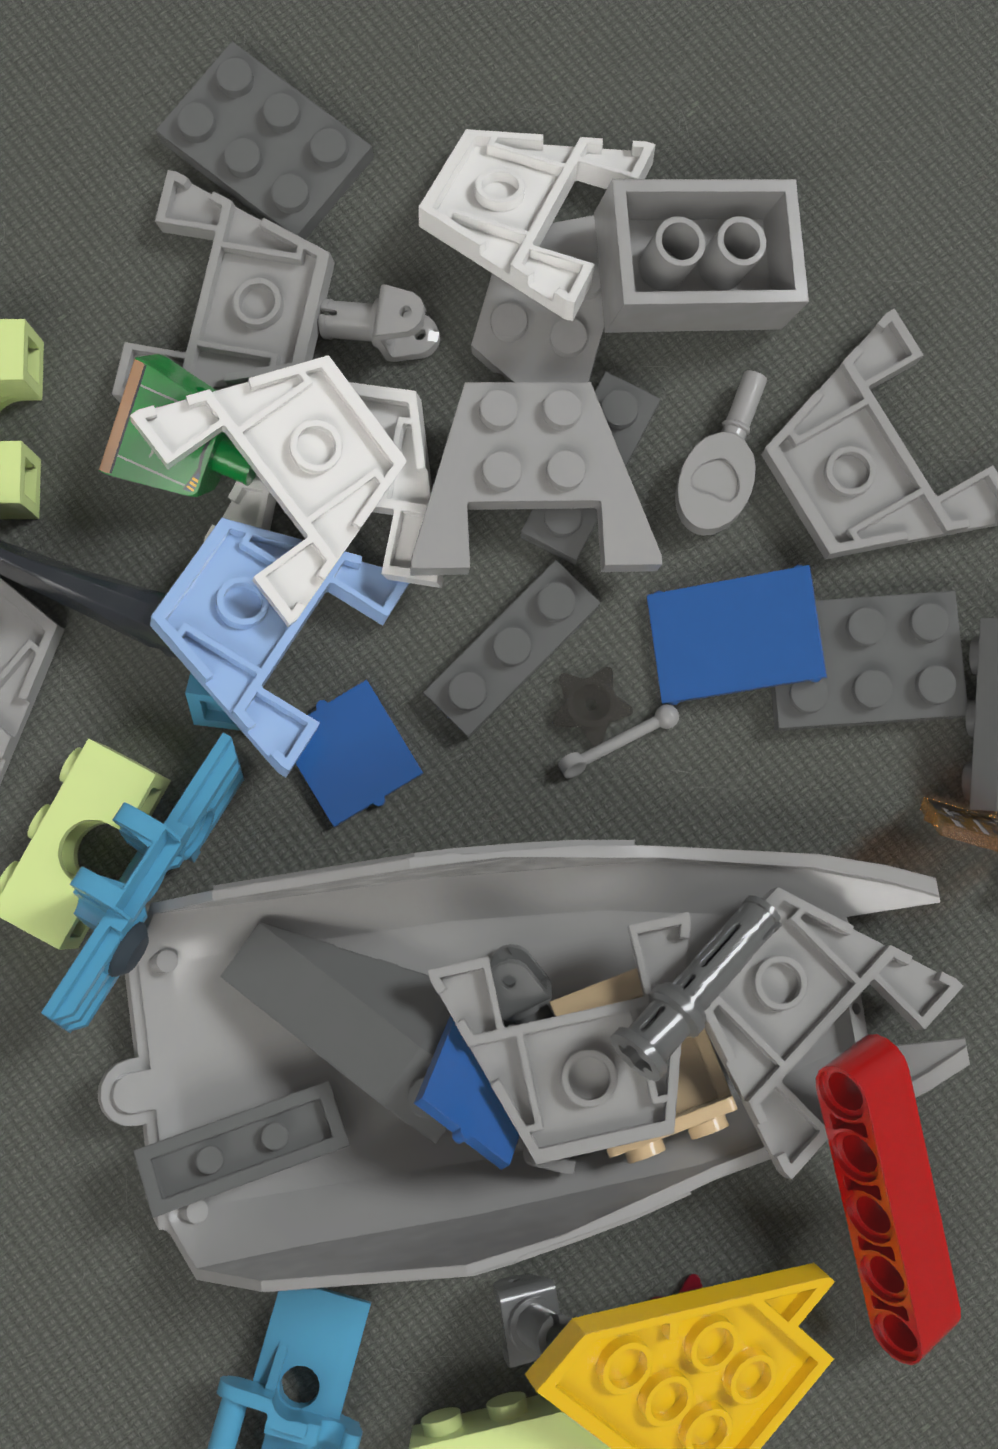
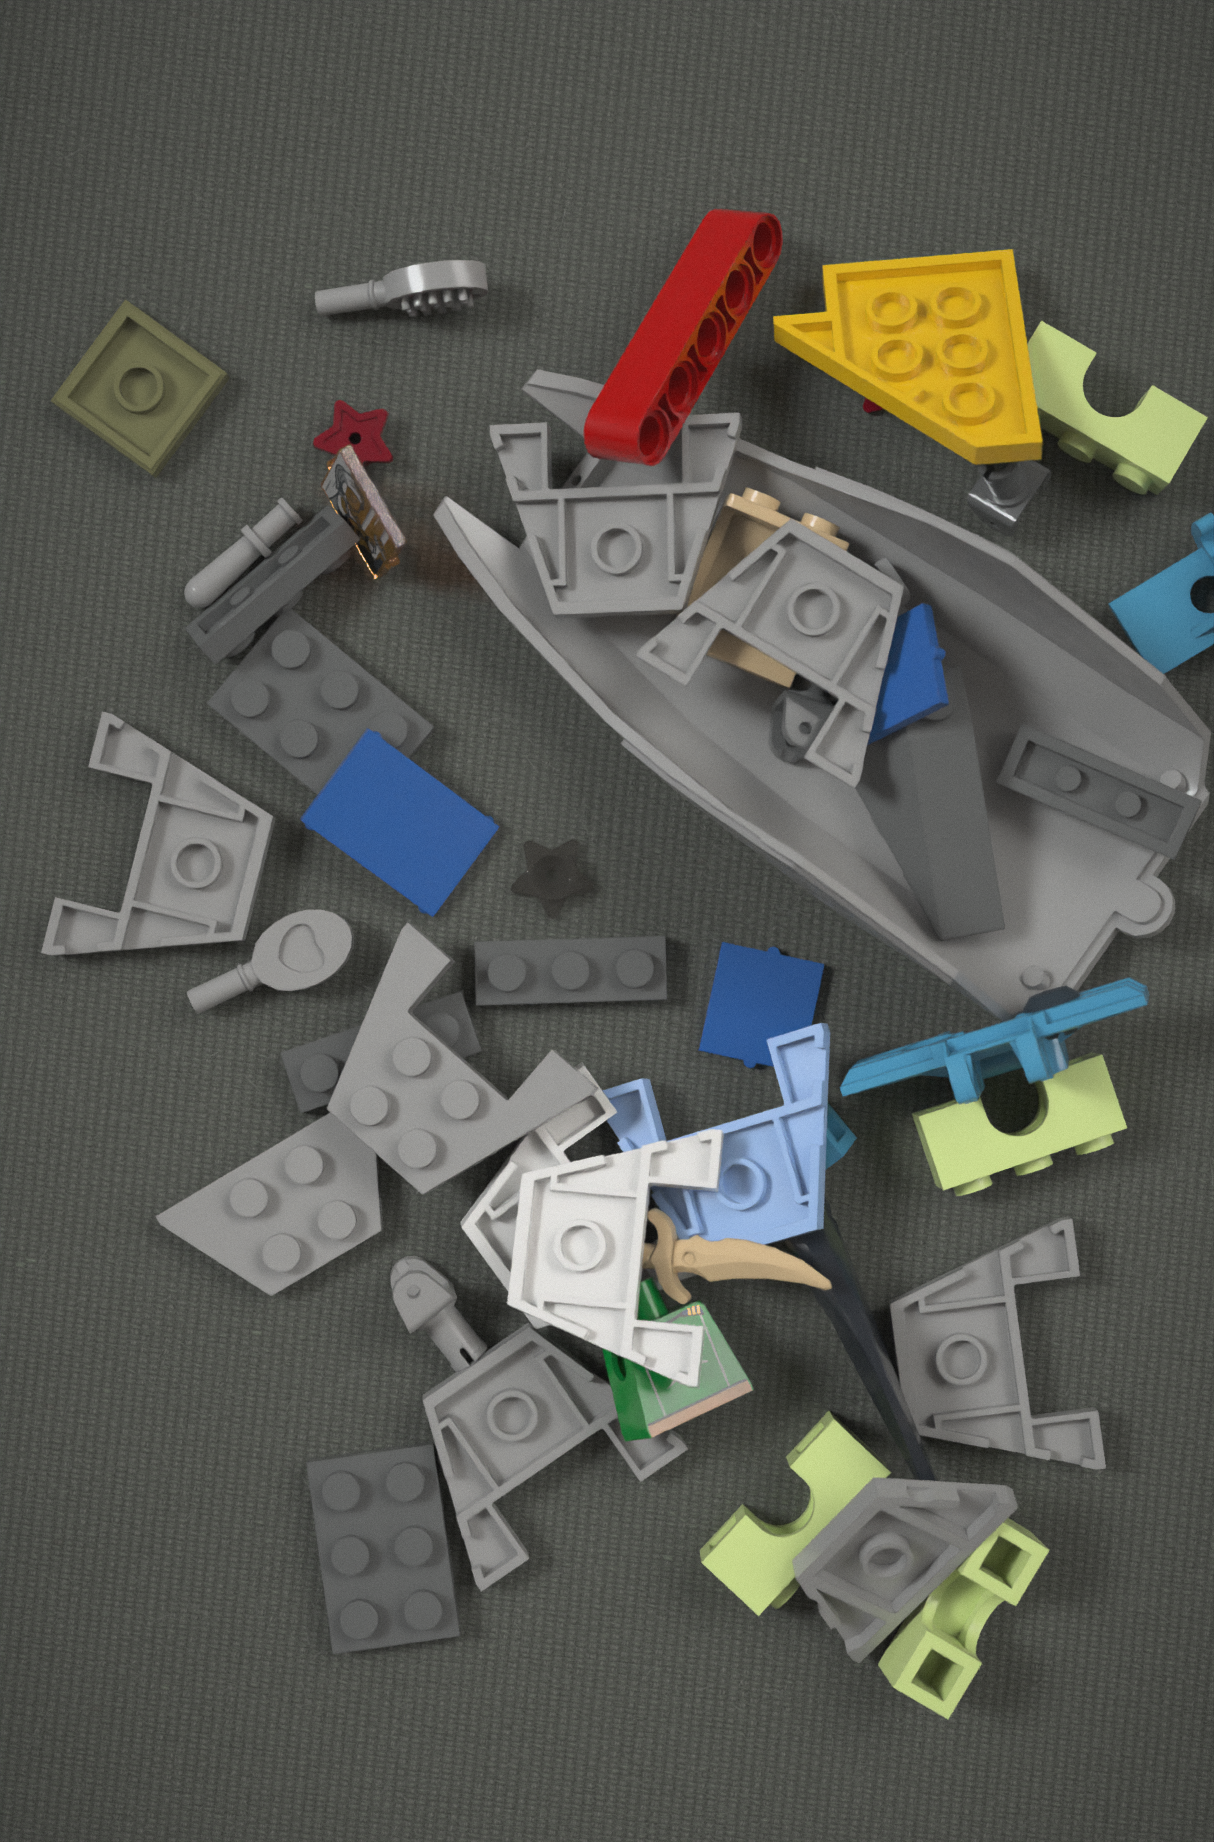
camera: 135 degrees left, 5 degrees up
(206, 531) = (719, 1260): none -> tan piece
(503, 197) = (248, 1320): white wing -> none
(575, 763) = (507, 814): light grey hinge -> none
(680, 1005) = (708, 597): dark grey pin -> none
(700, 254) = (152, 1127): light grey brick -> none

